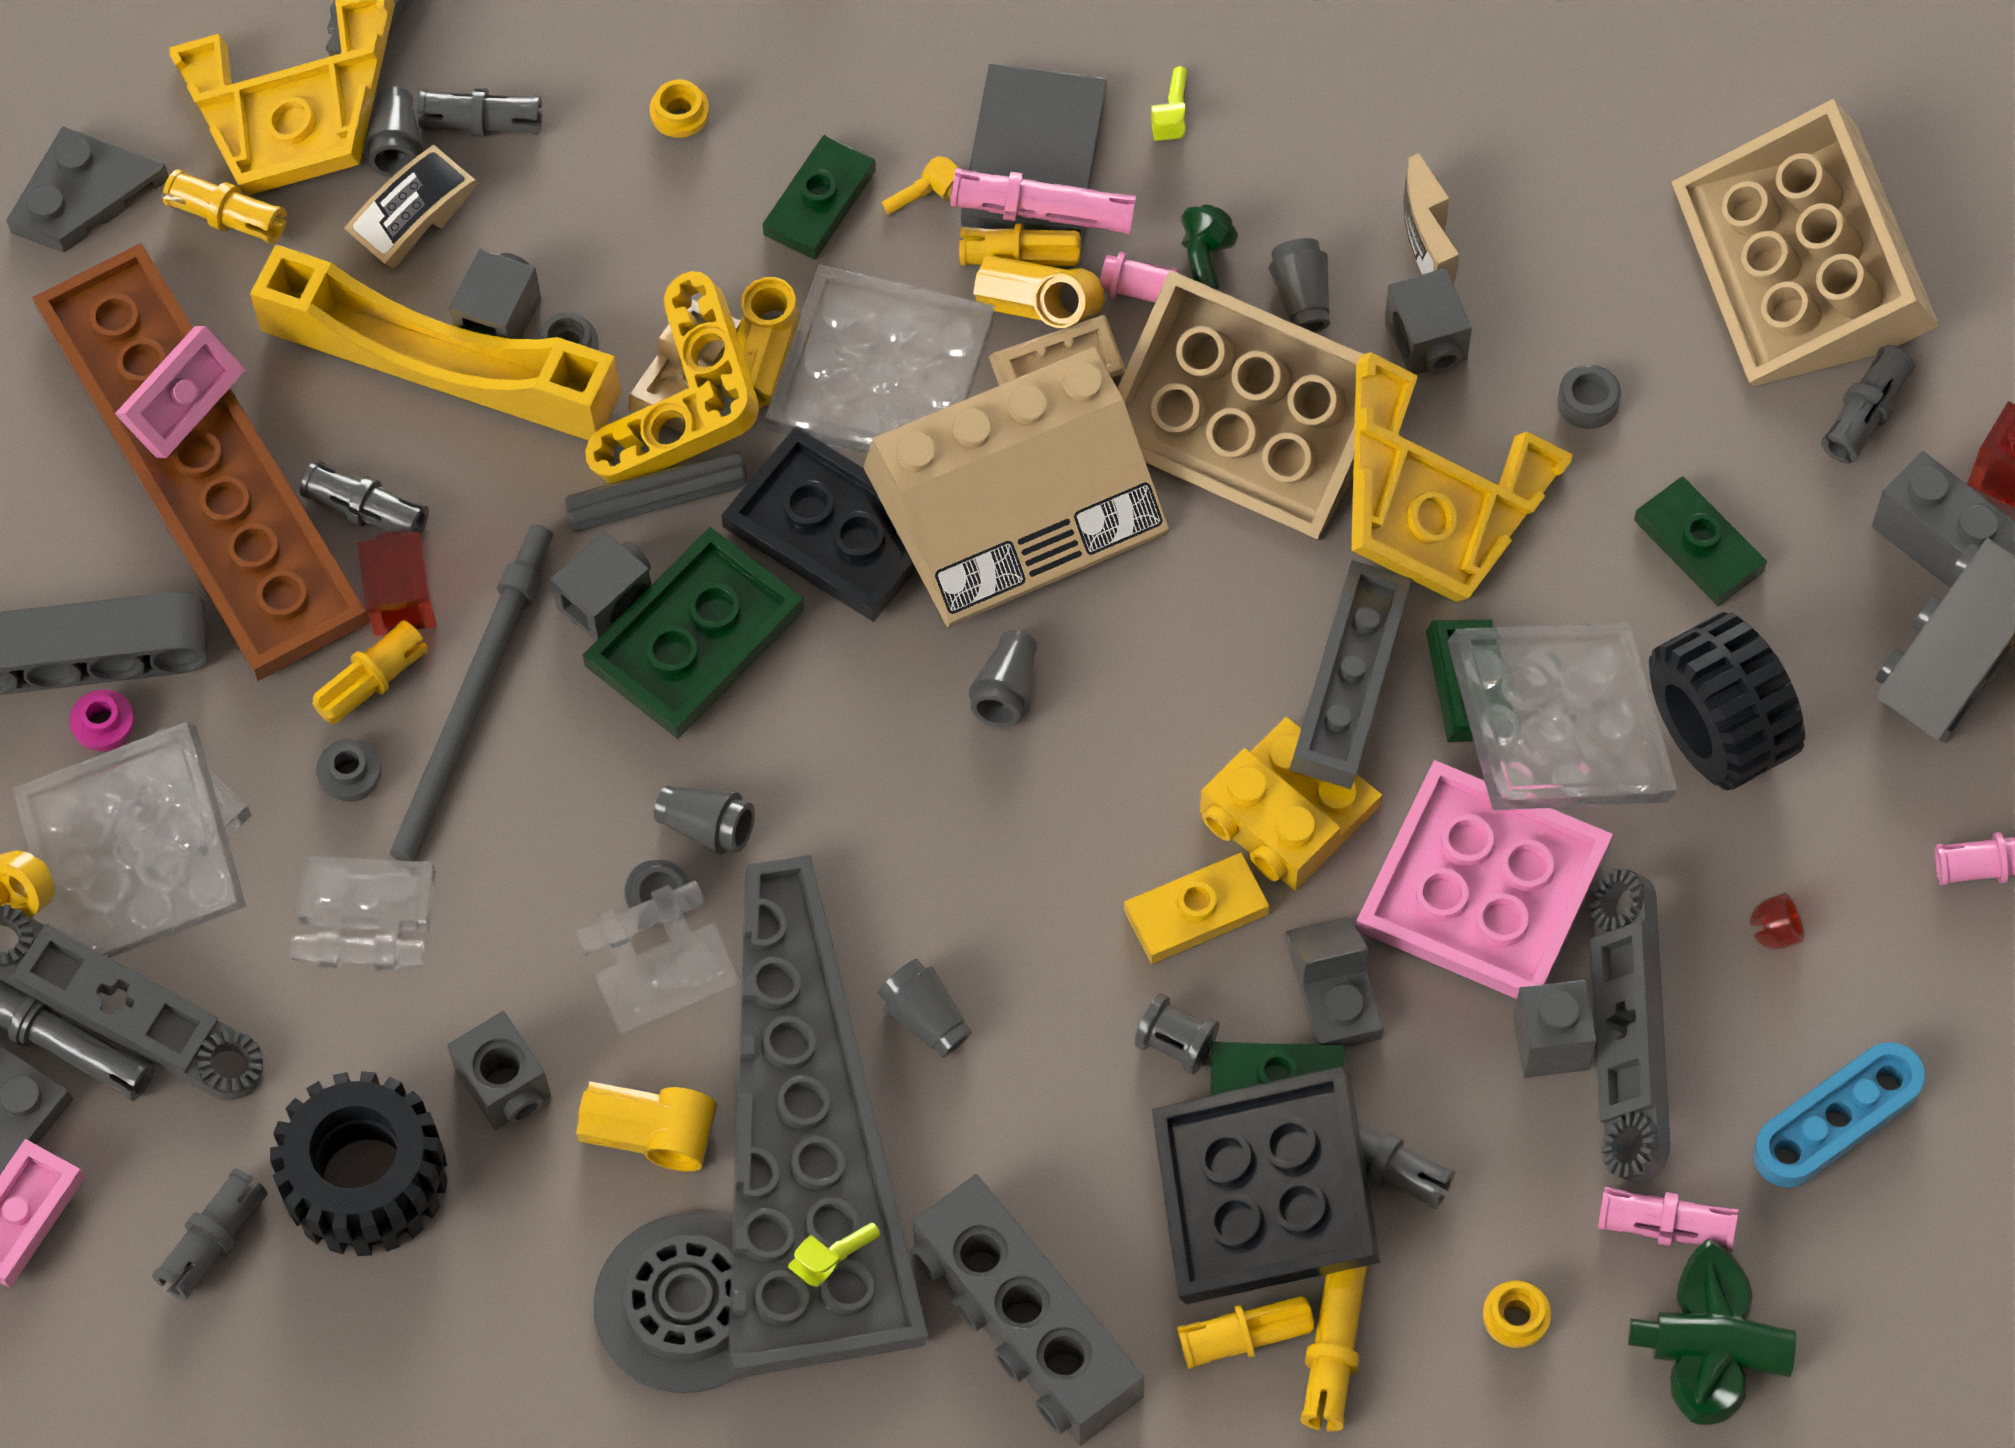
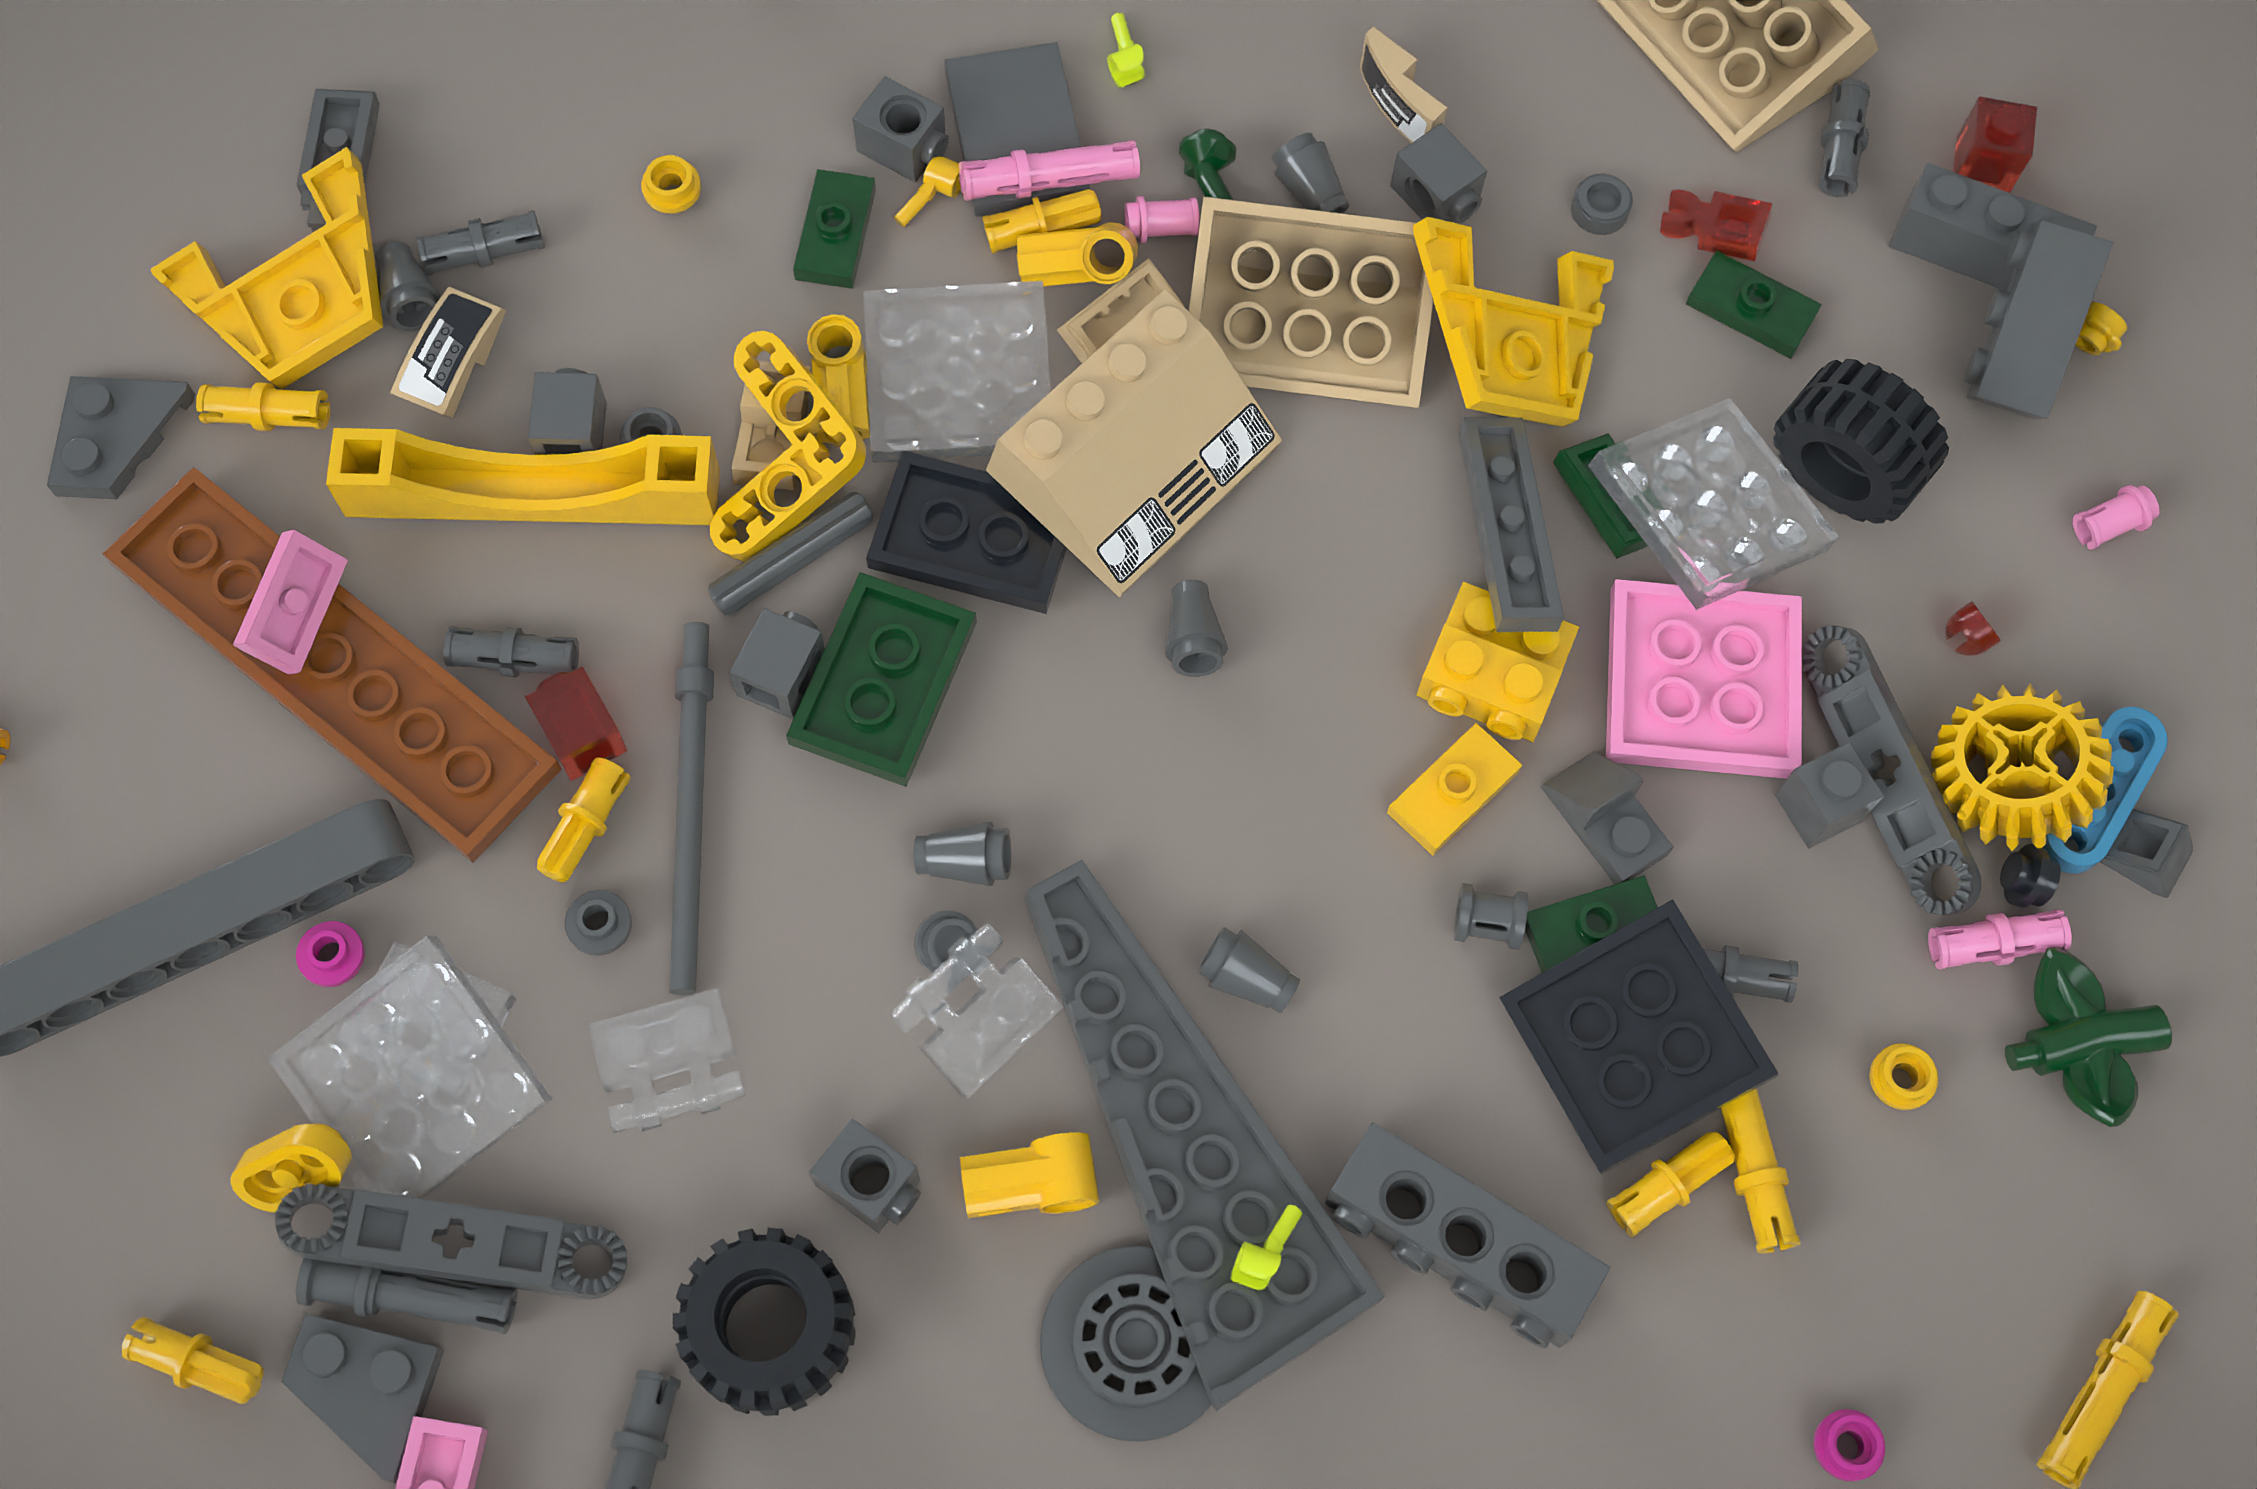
camera: 25 degrees left, 5 degrees up
(915, 99) = (898, 109): none -> dark grey brick
(1702, 454) = (1725, 224): none -> clear red plate
(1724, 1170) = (2030, 877): none -> black plate
(1755, 1062) = (2022, 783): none -> yellow gear
(1864, 1191) = (2150, 852): none -> dark grey slope

